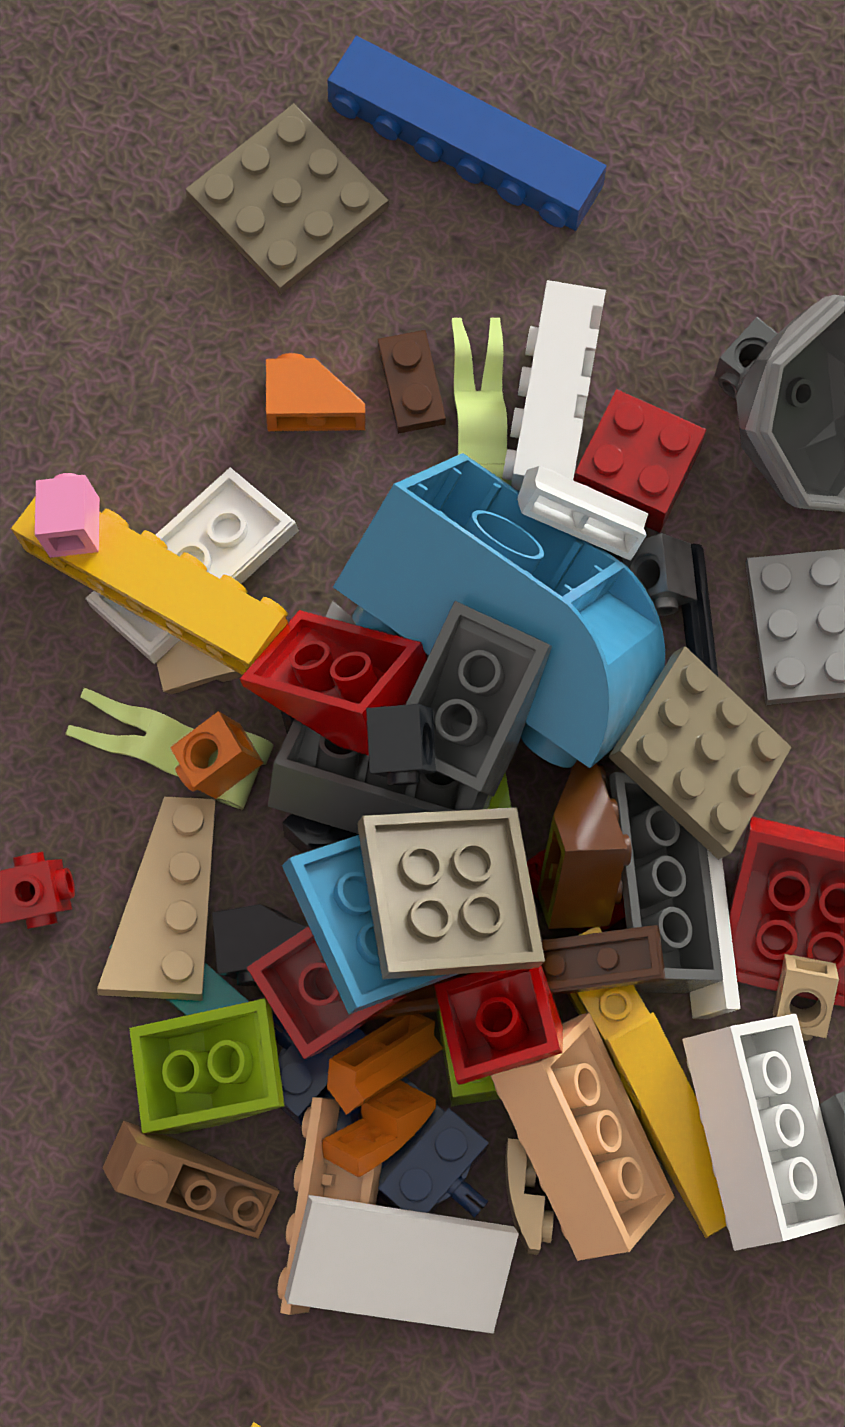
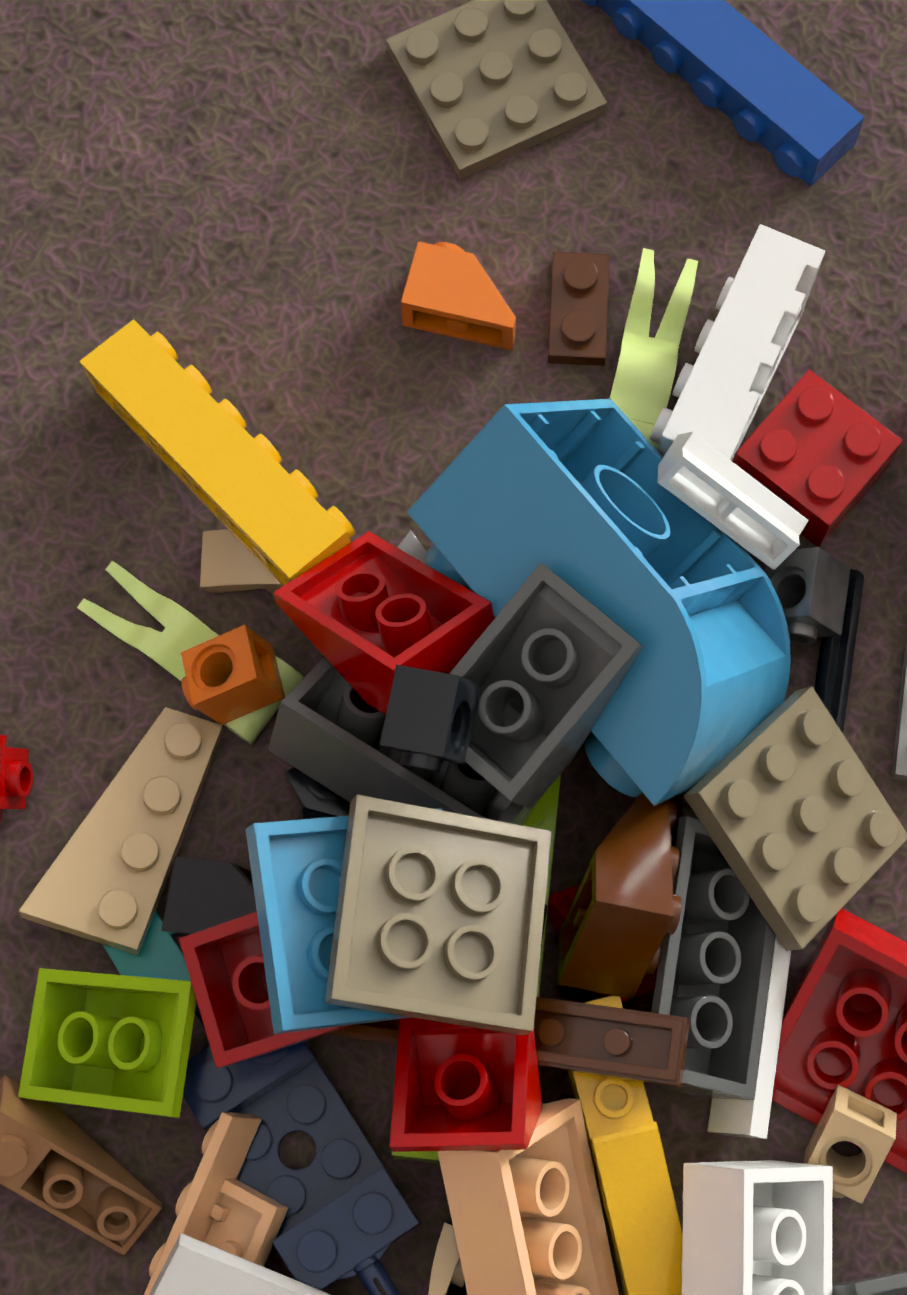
camera: 20 degrees right, 0 degrees up
(67, 515) = (138, 359): bright pink brick -> none
(225, 528) = (316, 425): white tile -> none
(381, 1059) = (317, 1086): orange piece -> none
(384, 1128) = (308, 1164): orange slope -> none

